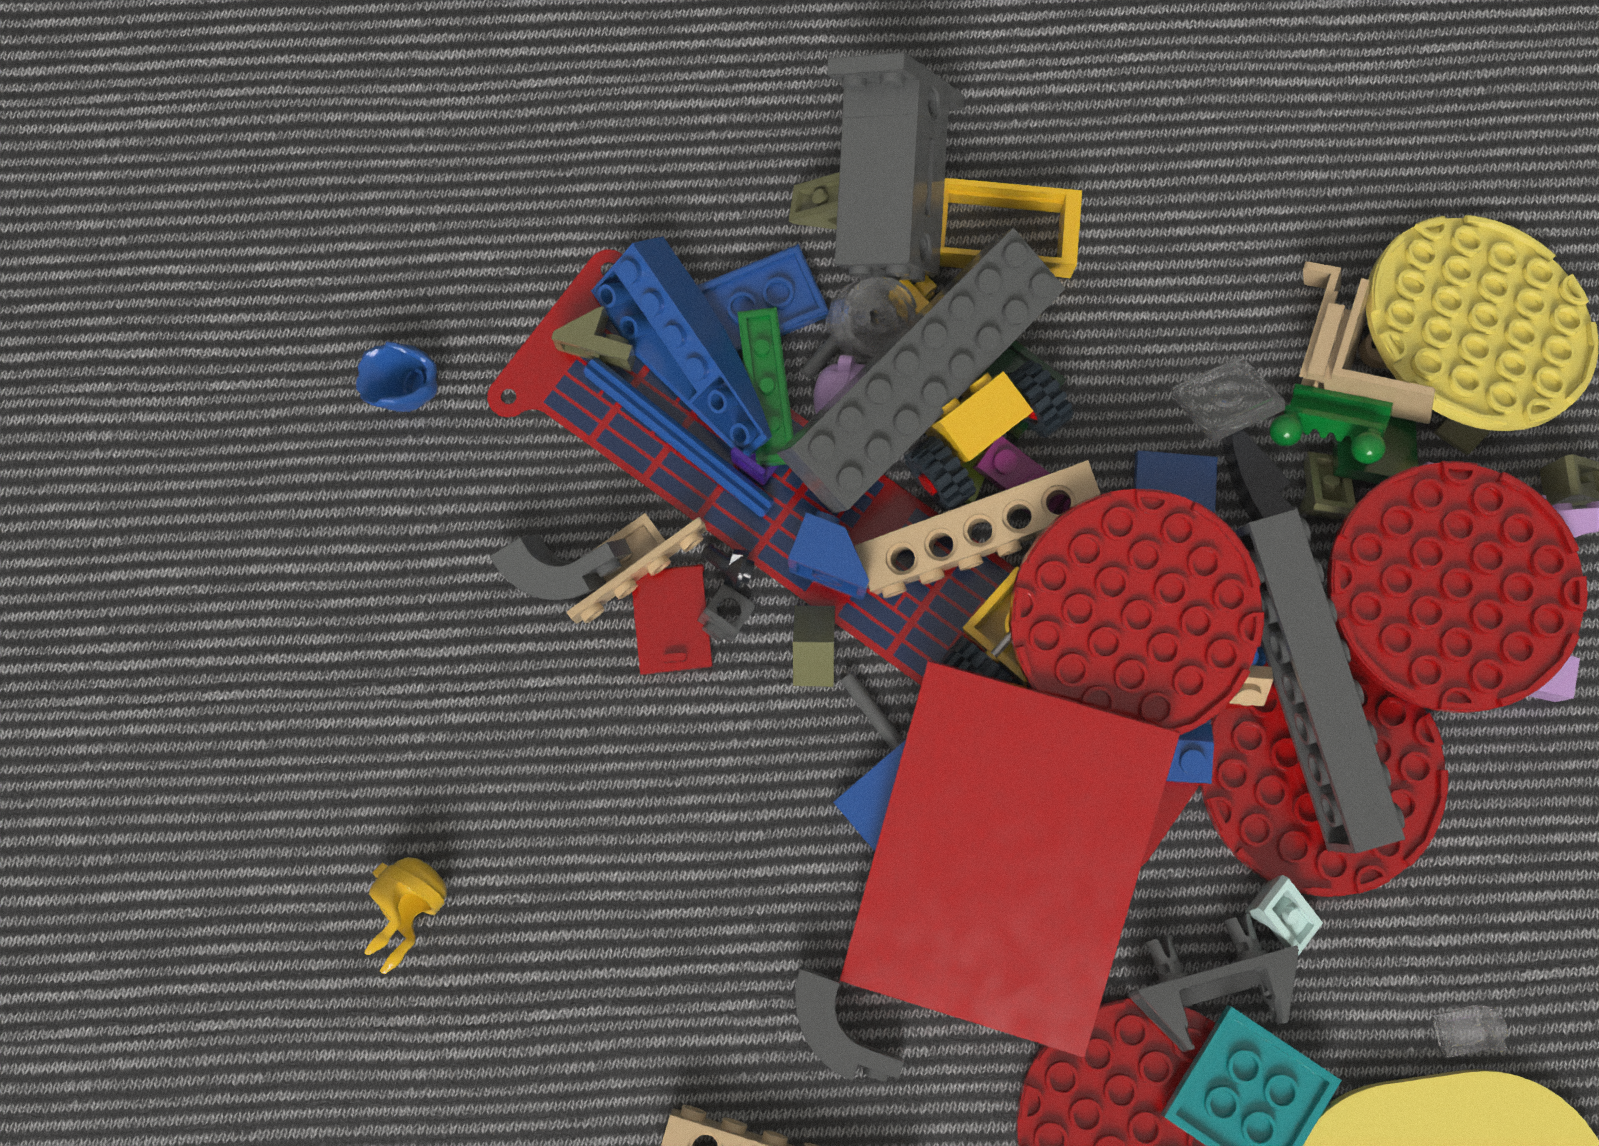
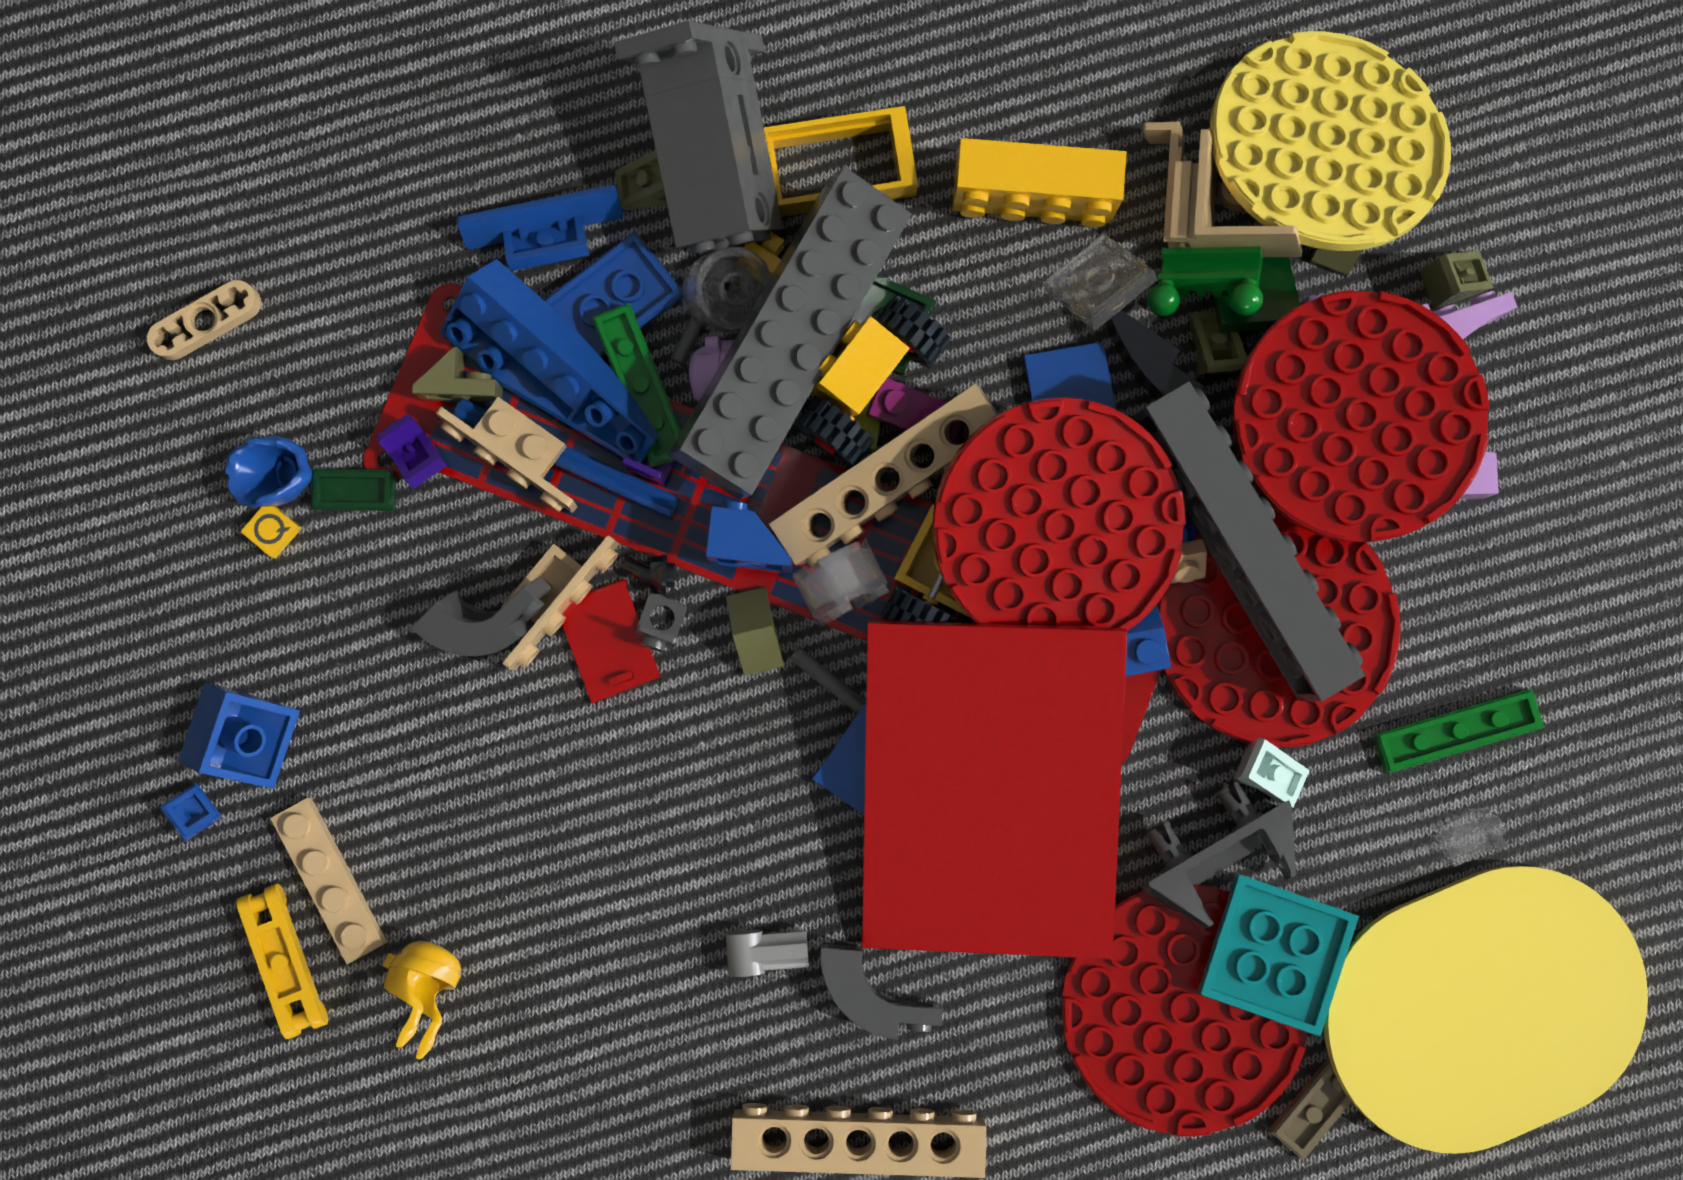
camera: 20 degrees left, 5 degrees up
(233, 678) = (190, 812): none -> blue tile
(278, 844) = (281, 961): none -> yellow plate
(299, 617) = (238, 736): none -> blue slope
(344, 778) = (328, 880): none -> tan plate
(363, 217) = (182, 343): none -> tan beam
(384, 433) = (271, 530): none -> yellow tile
(471, 416) = (353, 490): none -> dark green tile
(535, 392) = (411, 450): none -> dark purple bracket
(635, 411) = (516, 443): none -> tan bracket
(713, 219) = (543, 228): none -> blue bracket
(736, 957) = (755, 952): none -> light grey piece
(910, 618) = (839, 580): none -> clear brick
(1192, 290) = (1038, 182): none -> yellow brick
(1480, 923) = (1458, 730): none -> green tile

